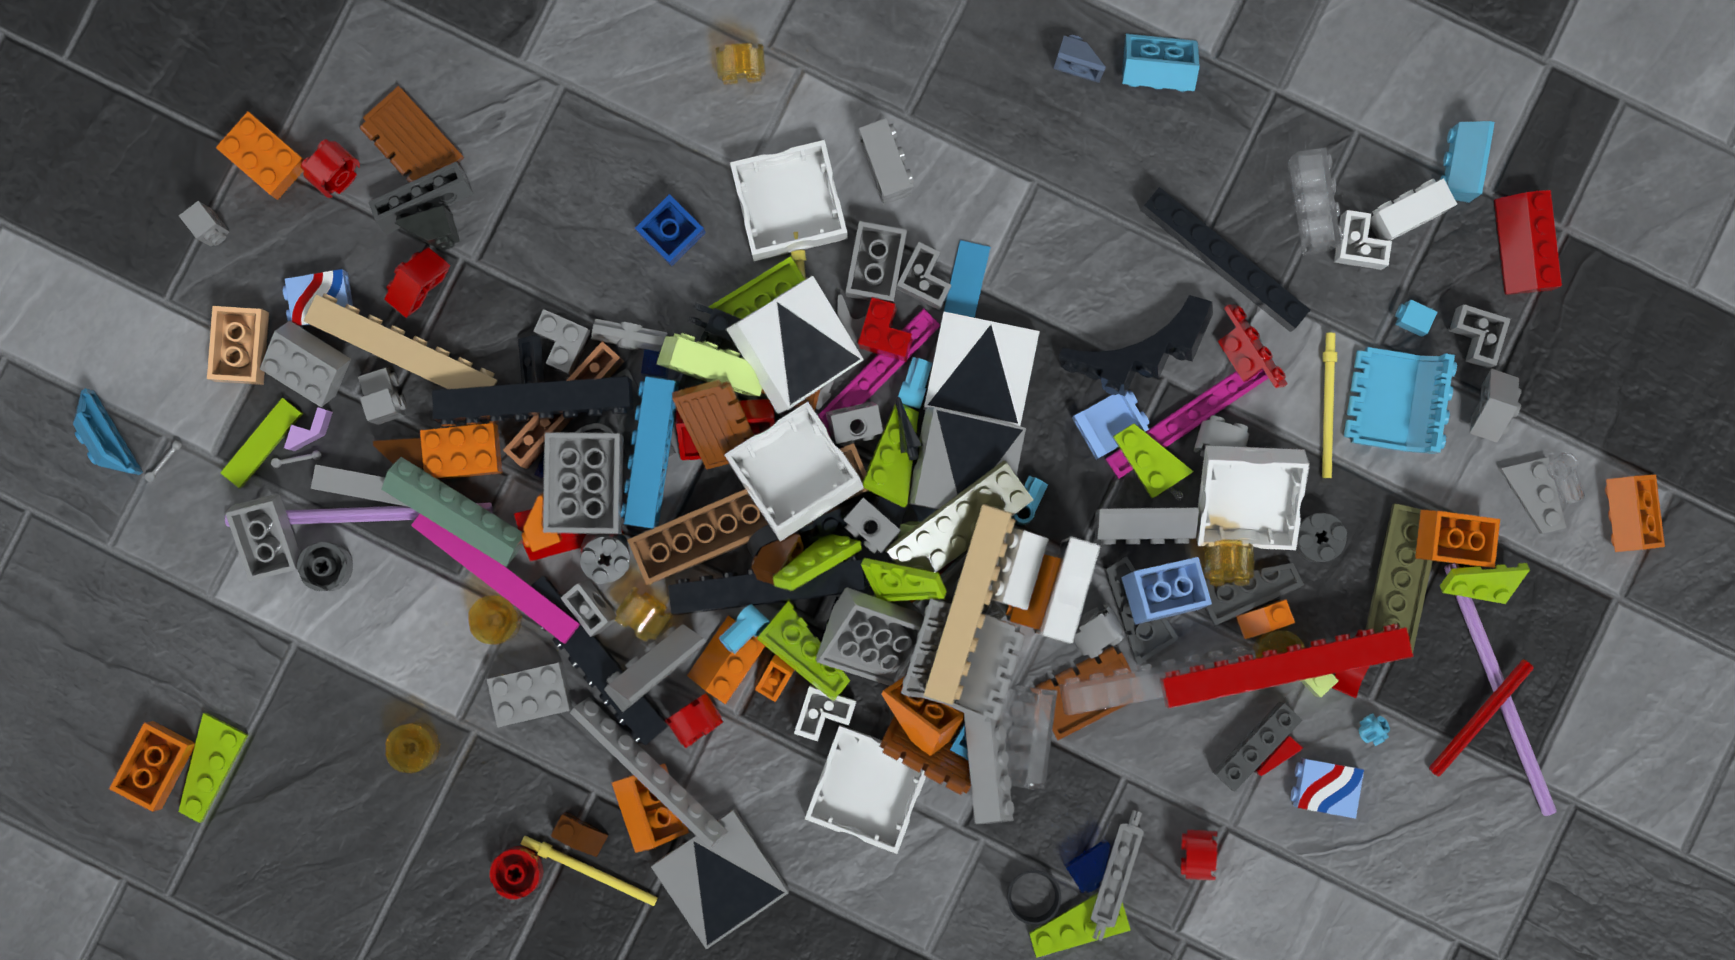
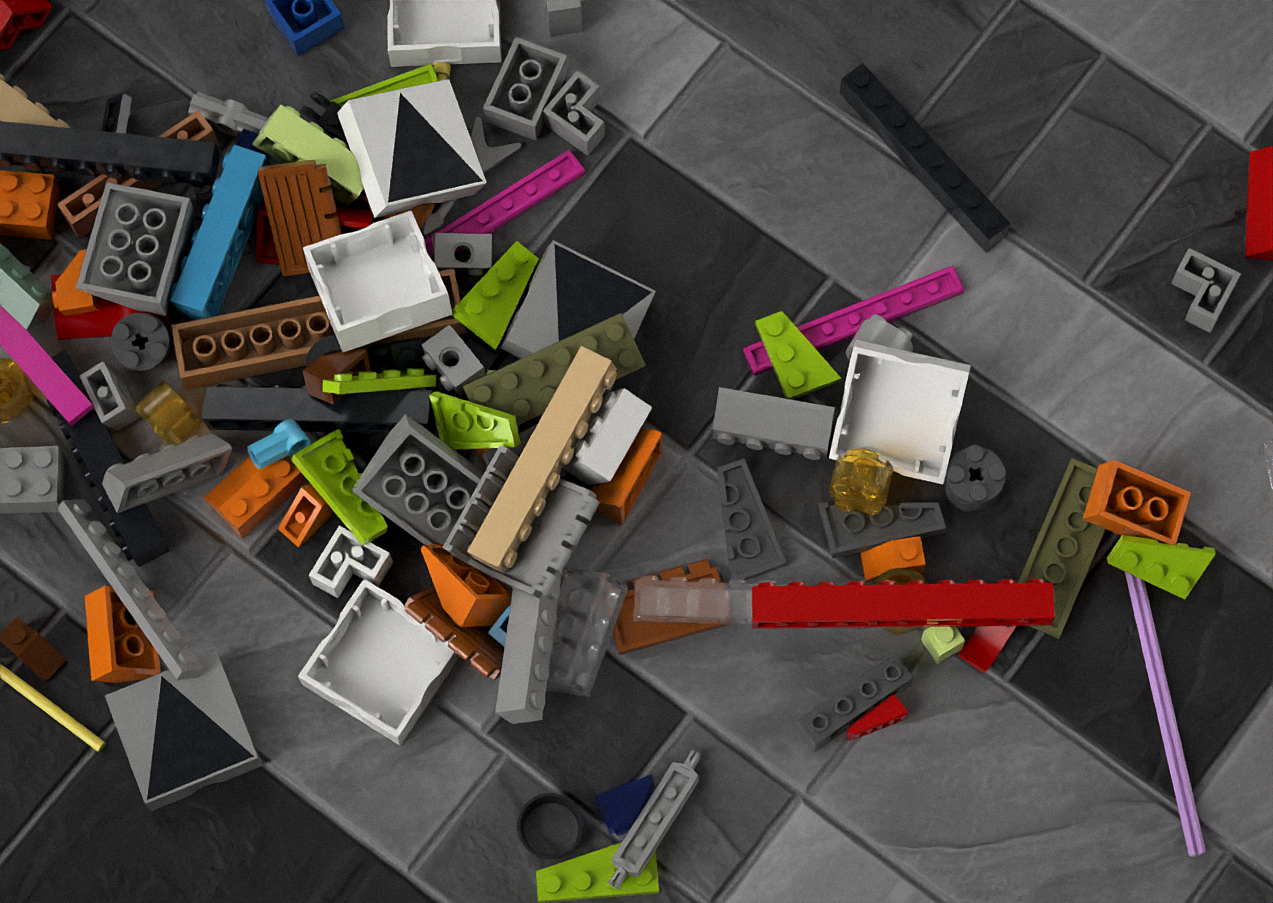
camera: 15 degrees right, 15 degrees down
(568, 338) = (159, 104): light grey brick -> none
(694, 720) = (198, 541): red brick -> none
(879, 336) = (513, 162): red brick -> none
(908, 439) = (518, 276): black piece -> none
(913, 387) = (539, 230): medium azure piece -> none
(967, 279) = (626, 131): dark azure piece -> none
(982, 368) = (622, 217): tile -> none
(1036, 489) = (647, 375): medium azure piece -> none
(1069, 589) = (661, 469): white tile -> none
(1097, 630) = (689, 531): light grey brick -> none
(1107, 419) = (745, 306): light blue panel -> none
(1117, 367) = (811, 240): black arch -> none
(1166, 590) = (780, 499): light blue brick -> none
(1200, 854) = (759, 812): red brick -> none
(1247, 351) = (929, 258): red bracket -> none
(1315, 201) = (1039, 111): clear brick -> none
(1327, 787) = (930, 766): panel -> none
(1330, 359) = (1025, 288): light yellow bar -> none
(1356, 246) = (1079, 171): white brick -> none
(1374, 729) = (999, 710): medium azure gear -> none
(1400, 400) = (1096, 346): medium azure hinge -> none
(1412, 210) = (1147, 141): white brick -> none
(1415, 317) = (1133, 259): medium azure brick -> none
(1467, 158) = (1220, 100): medium azure slope -> none
(1481, 717) = (1131, 721): red axle -> none
(1496, 406) = (1212, 364): light grey brick -> none
(1537, 493) = (1244, 482): light grey wing -> none

